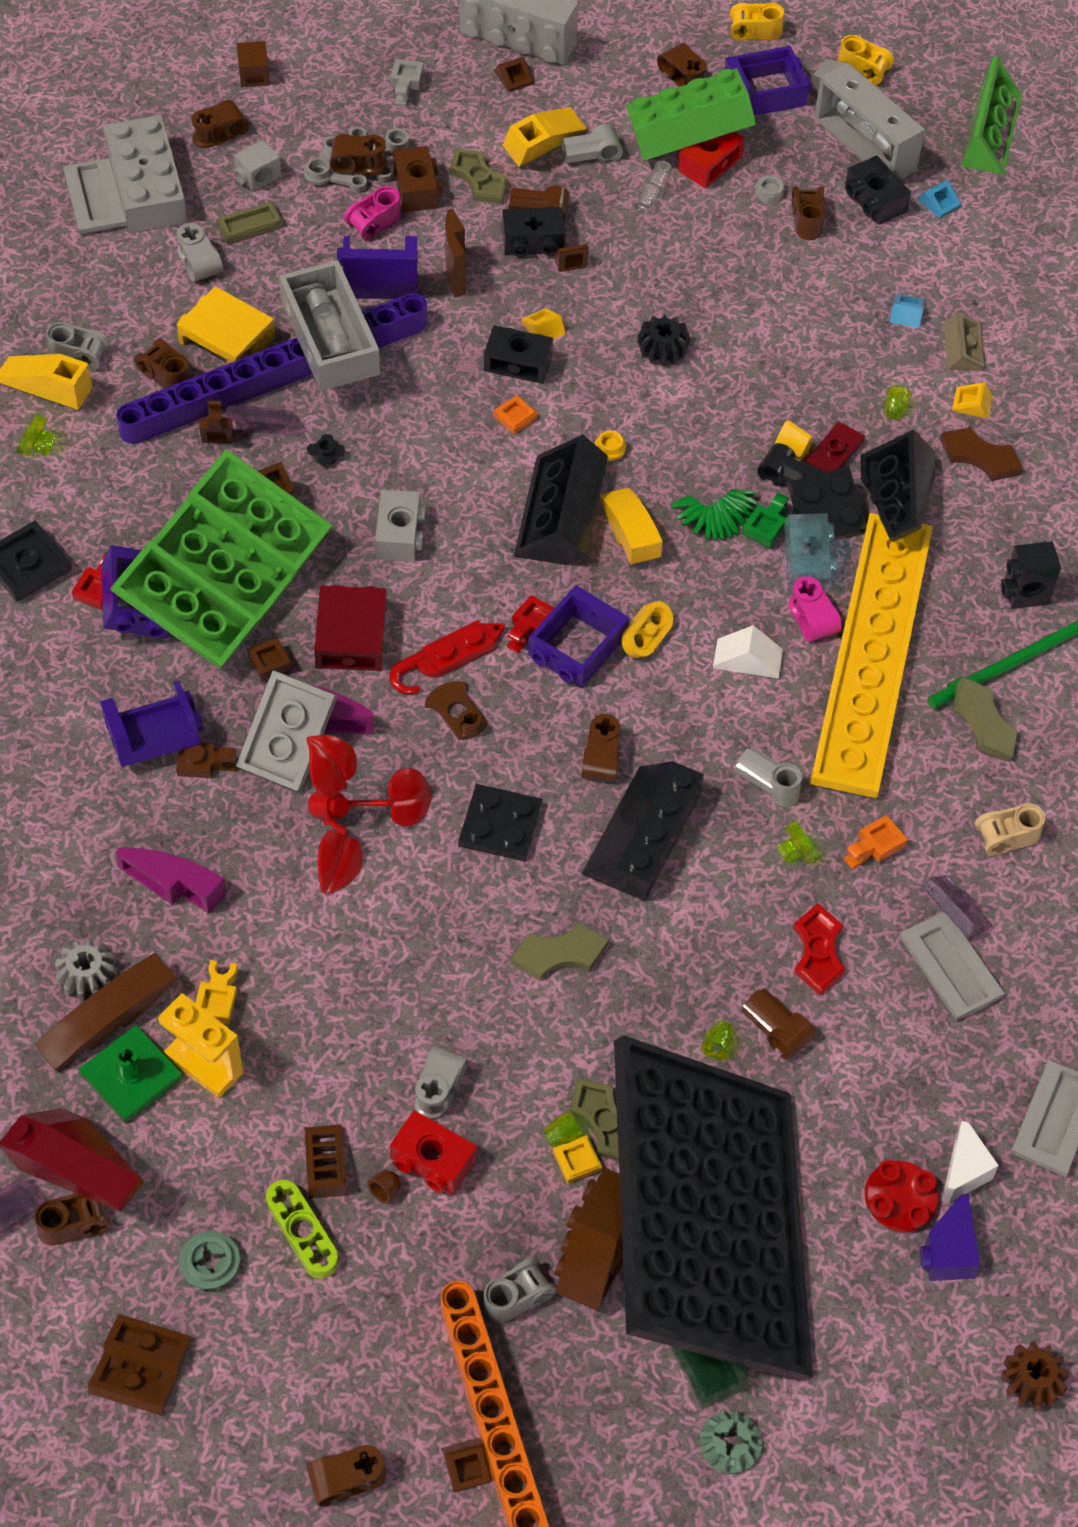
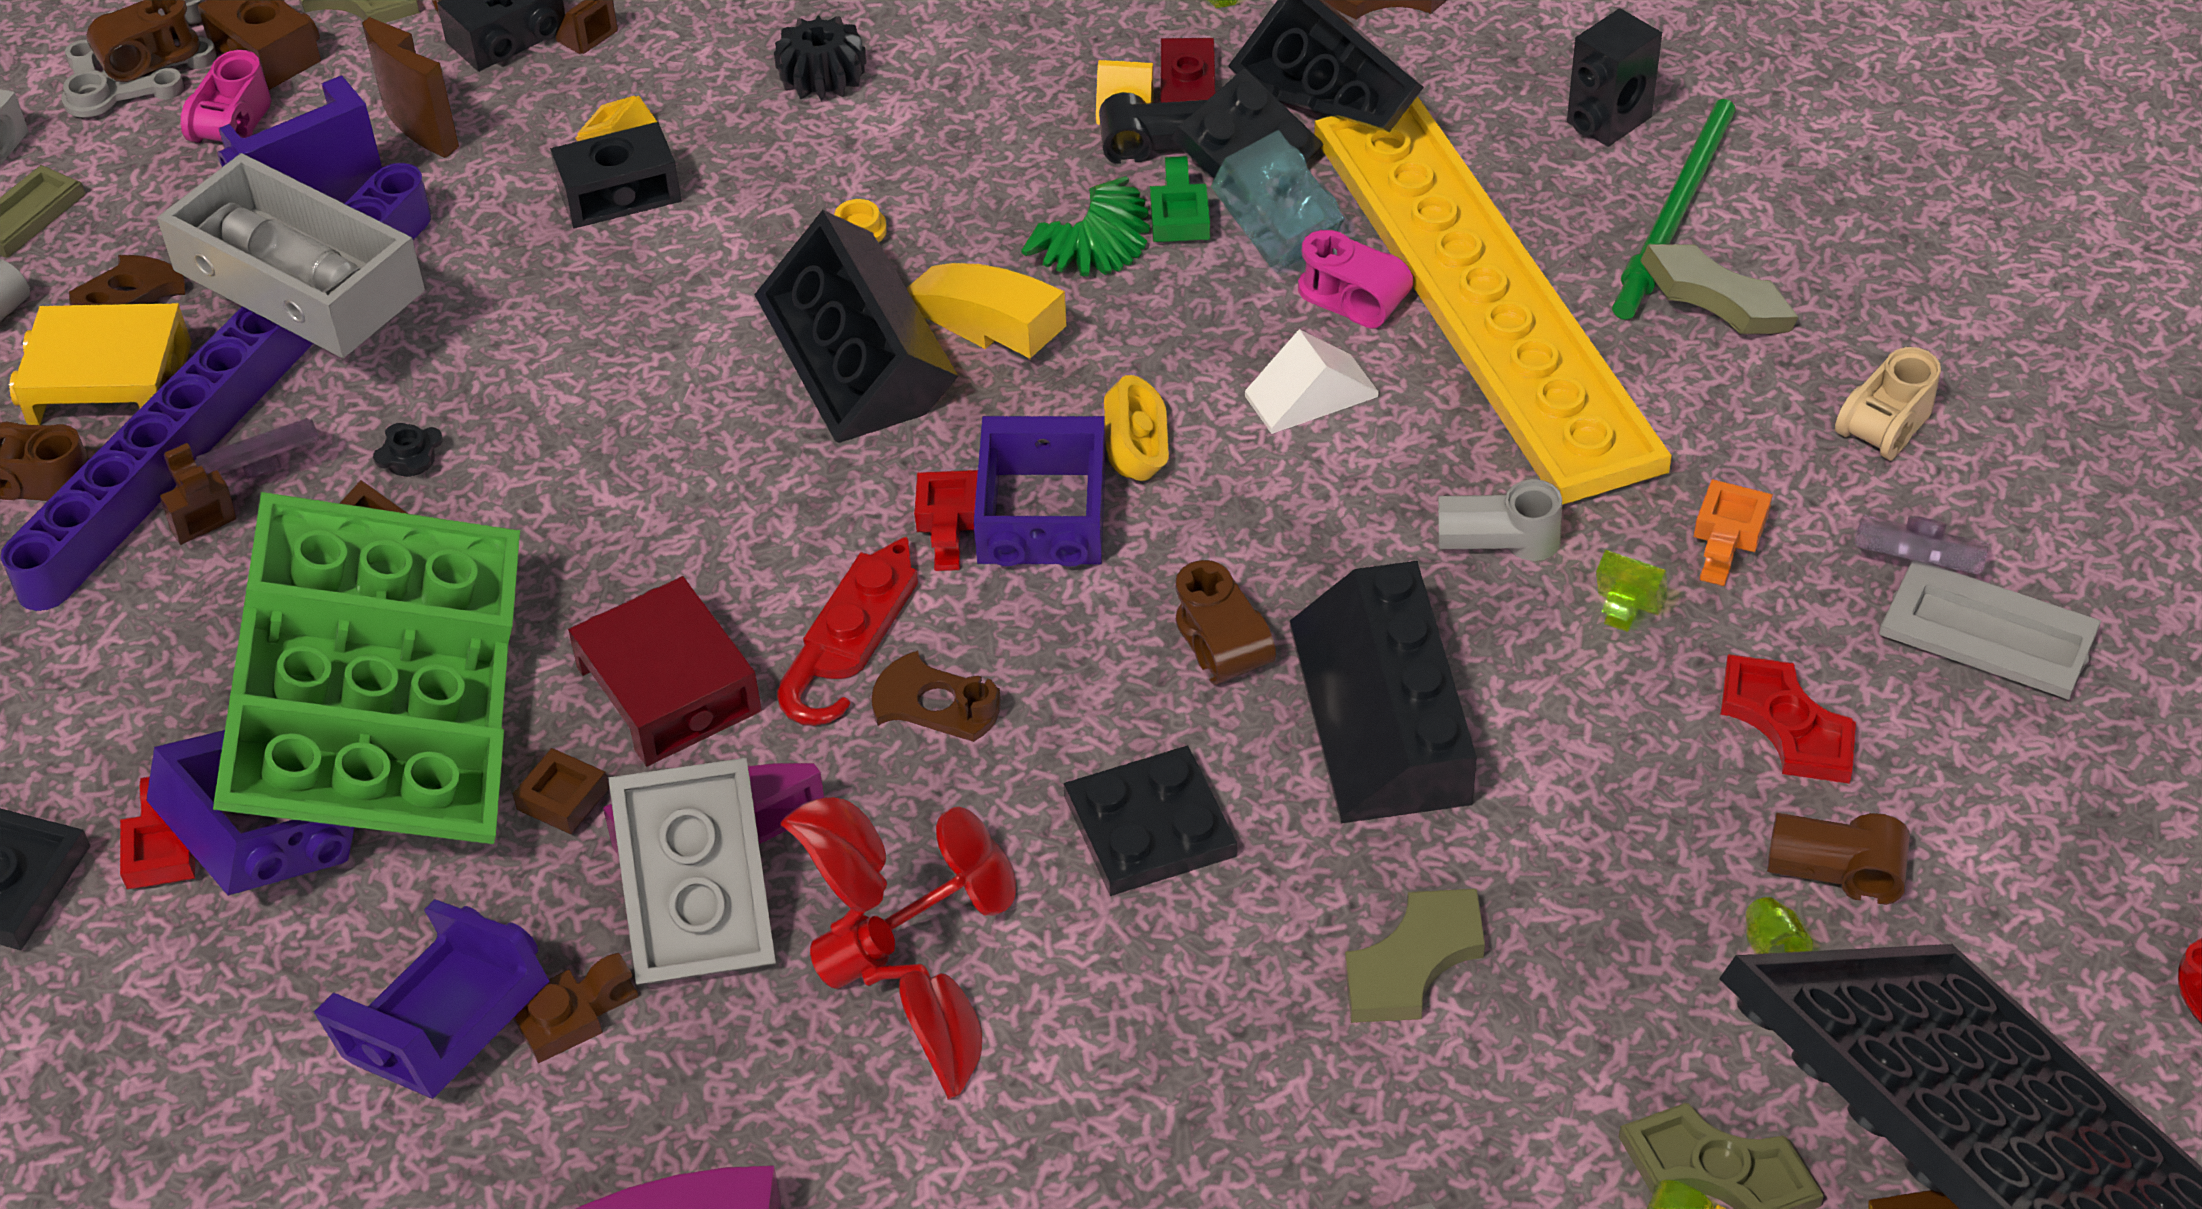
camera: 30 degrees left, 10 degrees down
(247, 292) = (150, 275): none -> reddish brown piece
(398, 525) = (621, 488): light grey brick -> none
(515, 414) = (674, 257): orange tile -> none

